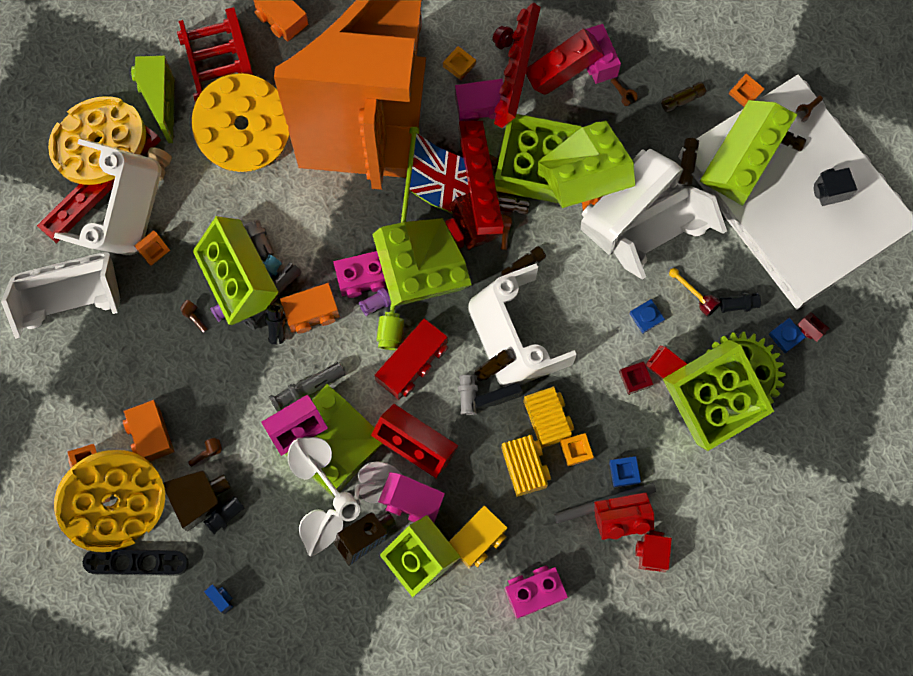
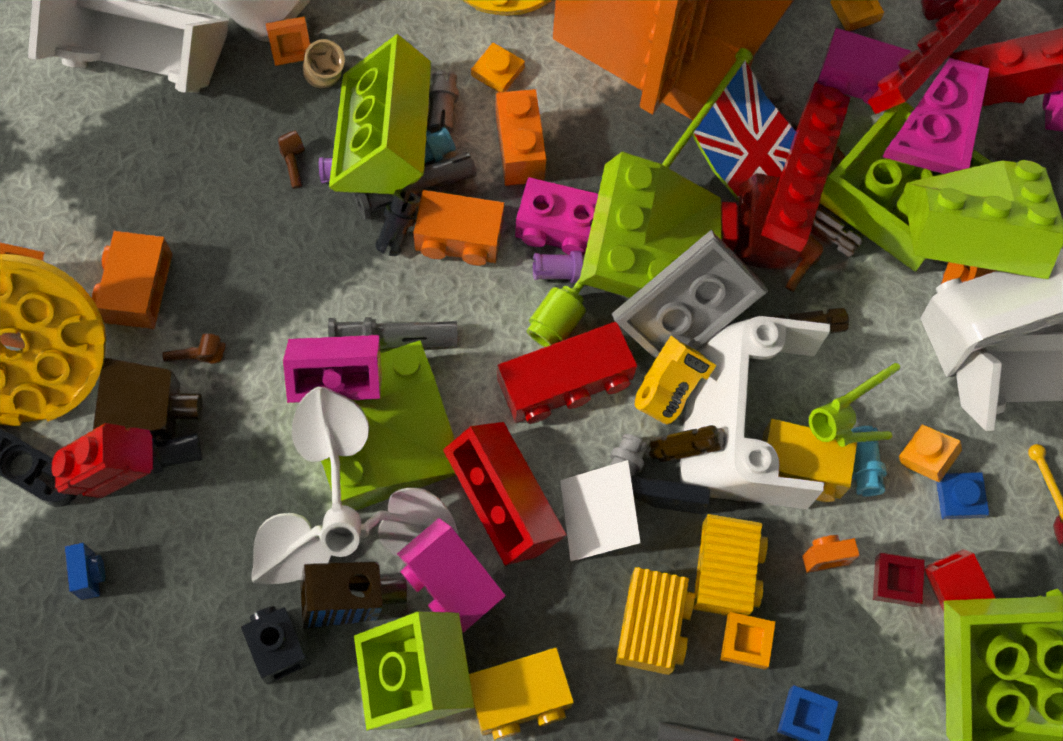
camera: 25 degrees right, 5 degrees down
(180, 247) = (326, 56): none -> tan wheel
(197, 537) = (103, 461): none -> red brick
(278, 202) = (497, 68): none -> light orange plate
(315, 238) = (520, 136): none -> orange brick
(340, 580) = (274, 644): none -> black brick
(457, 288) = (691, 297): none -> light grey tile
(468, 423) = (600, 511): none -> white sticker
(469, 334) = (671, 380): none -> yellow leg
(541, 116) = (945, 121): none -> dark pink wing
(561, 337) = (810, 459): none -> yellow brick
(565, 311) = (838, 417): none -> lime plant
(592, 326) = (868, 468): none -> medium azure pin
(595, 382) = (830, 553): none -> orange plate
(620, 302) = (930, 453): none -> light orange plate

